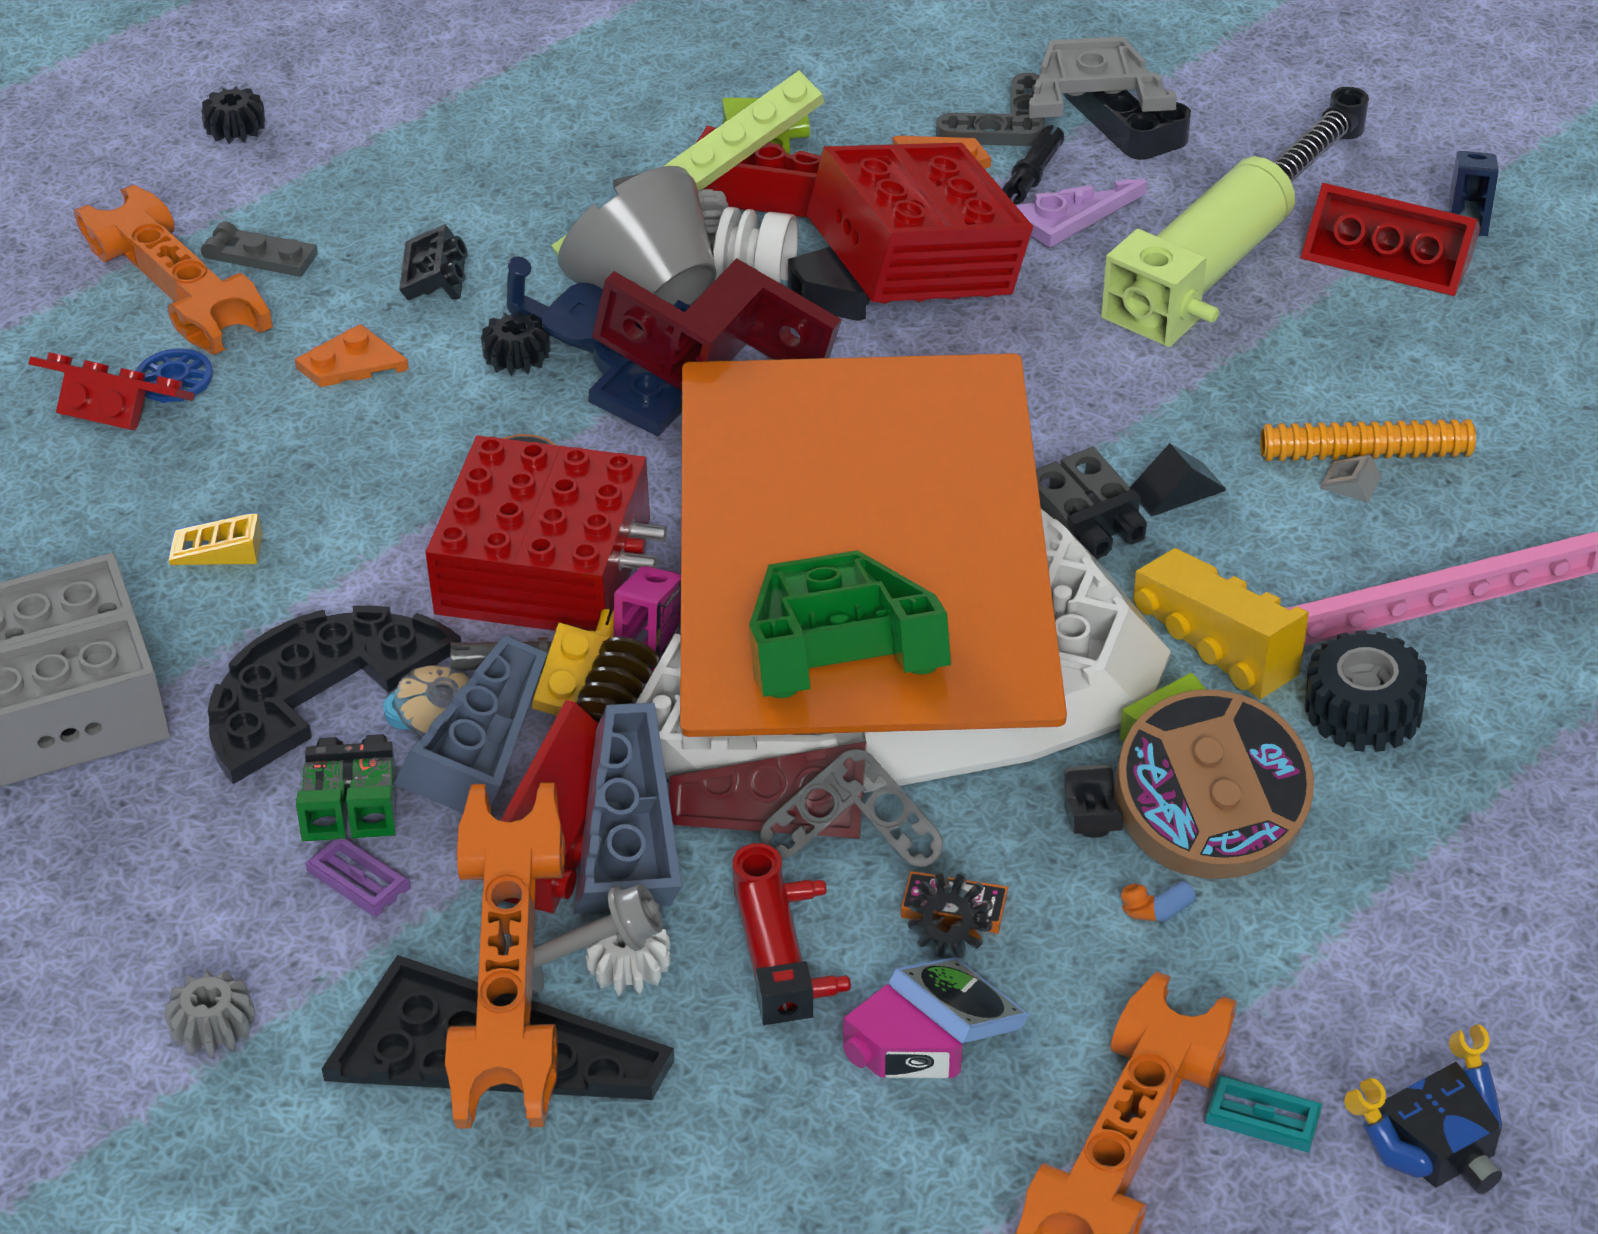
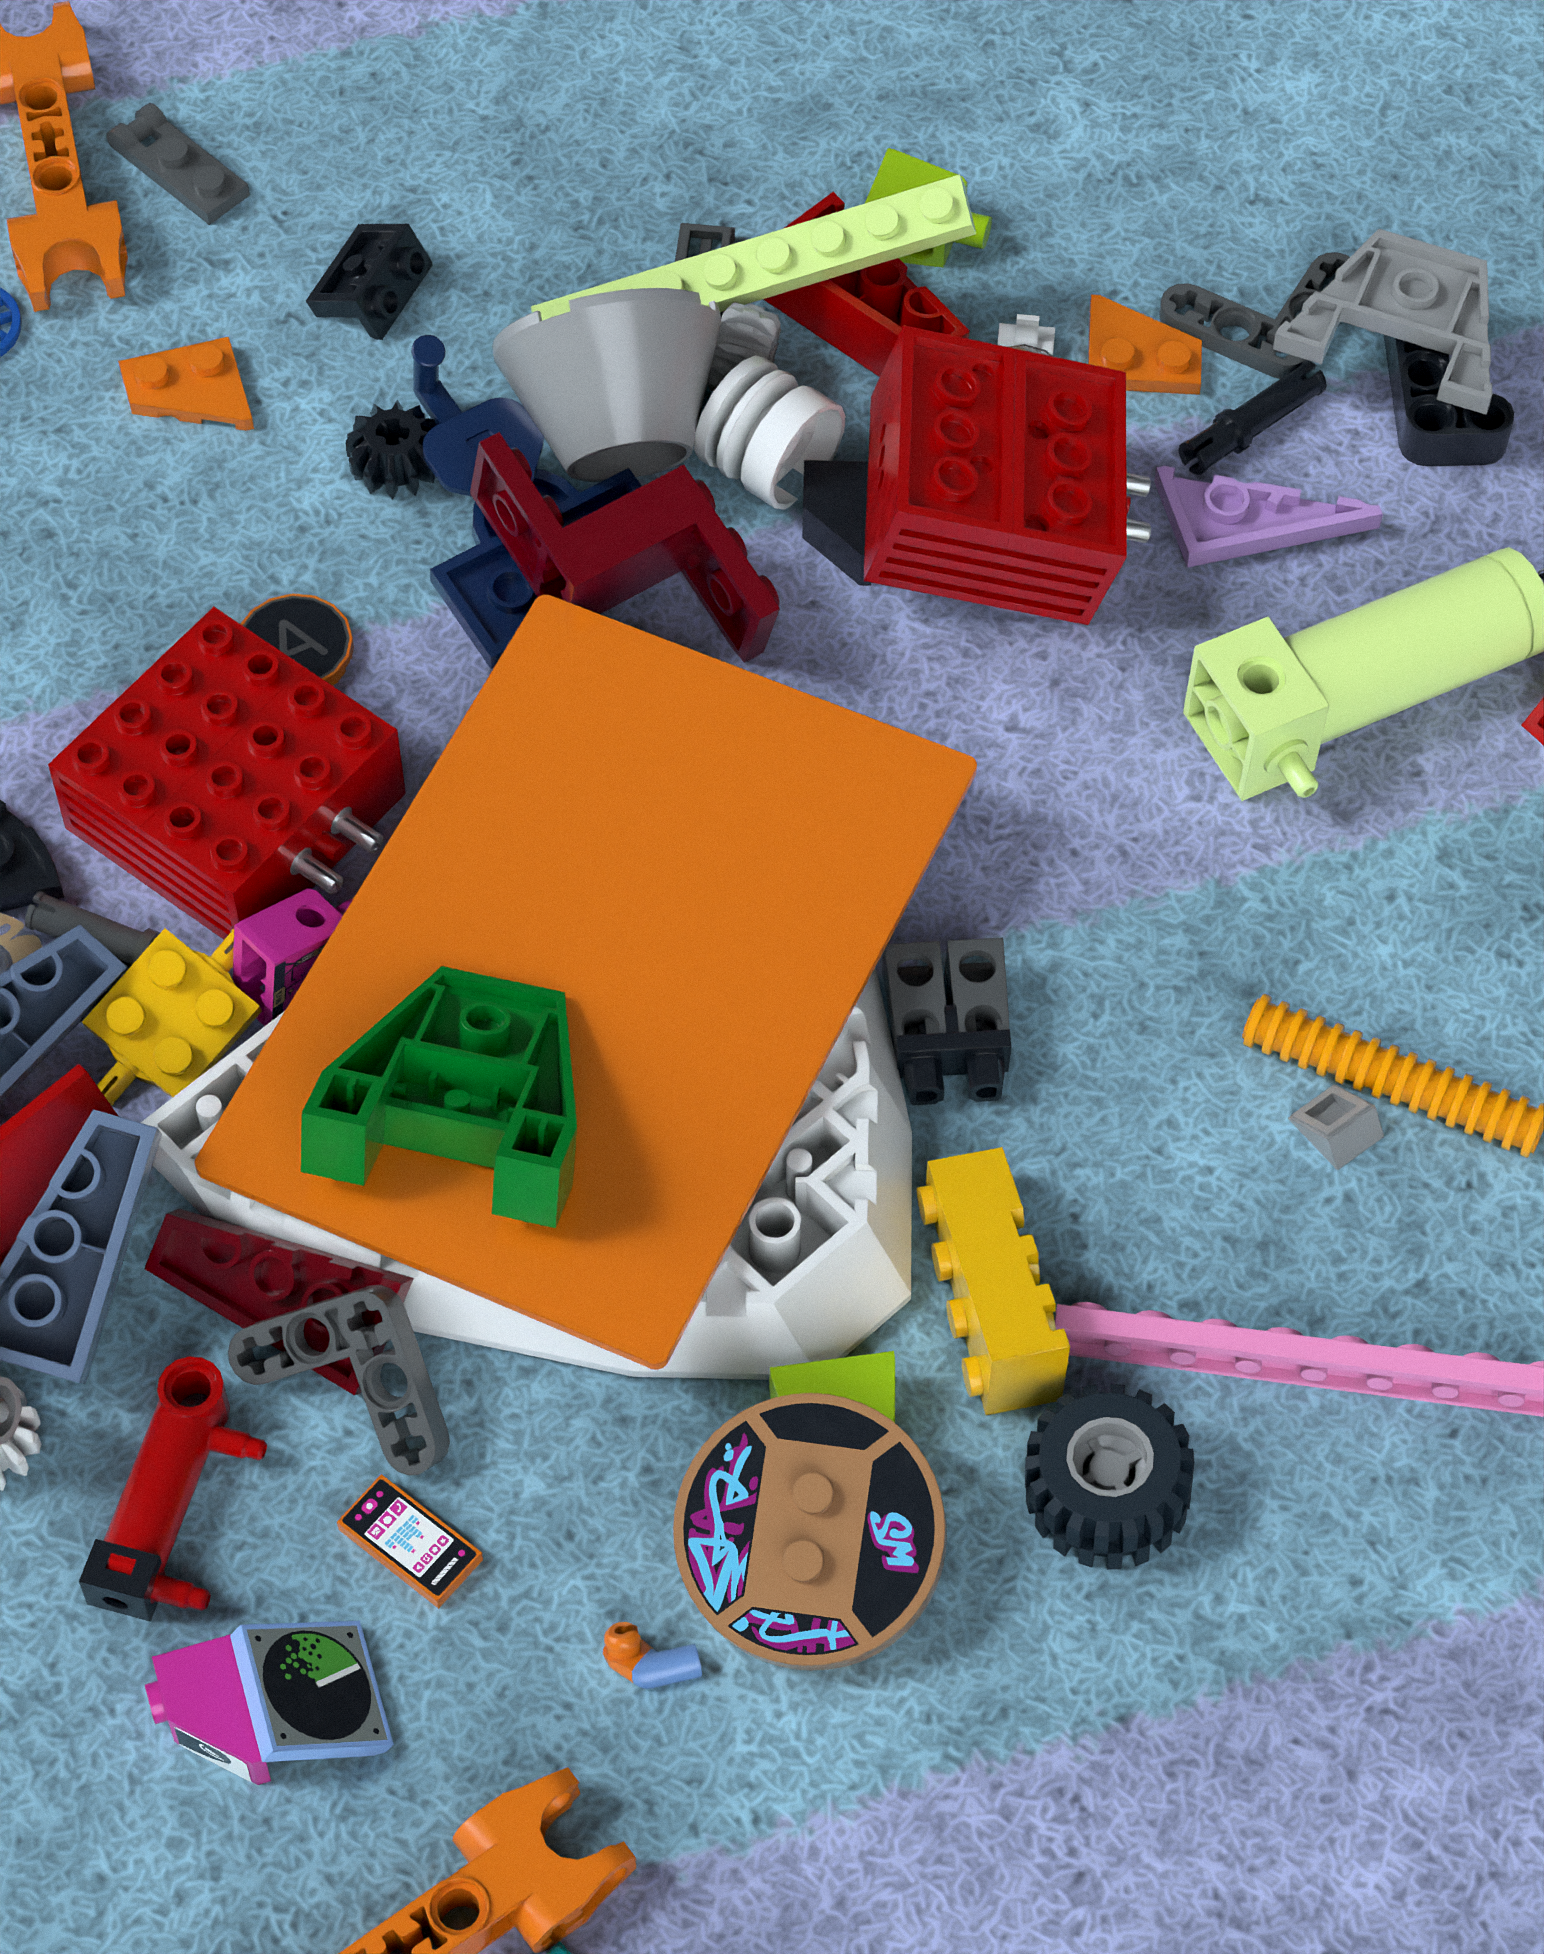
camera: 25 degrees right, 15 degrees up
(617, 675) = (169, 1054): dark brown piece -> none
(939, 900) = (373, 1568): black gear -> none
(1091, 801) = (652, 1480): black bracket -> none
(1174, 481) = (1096, 1030): black slope -> none

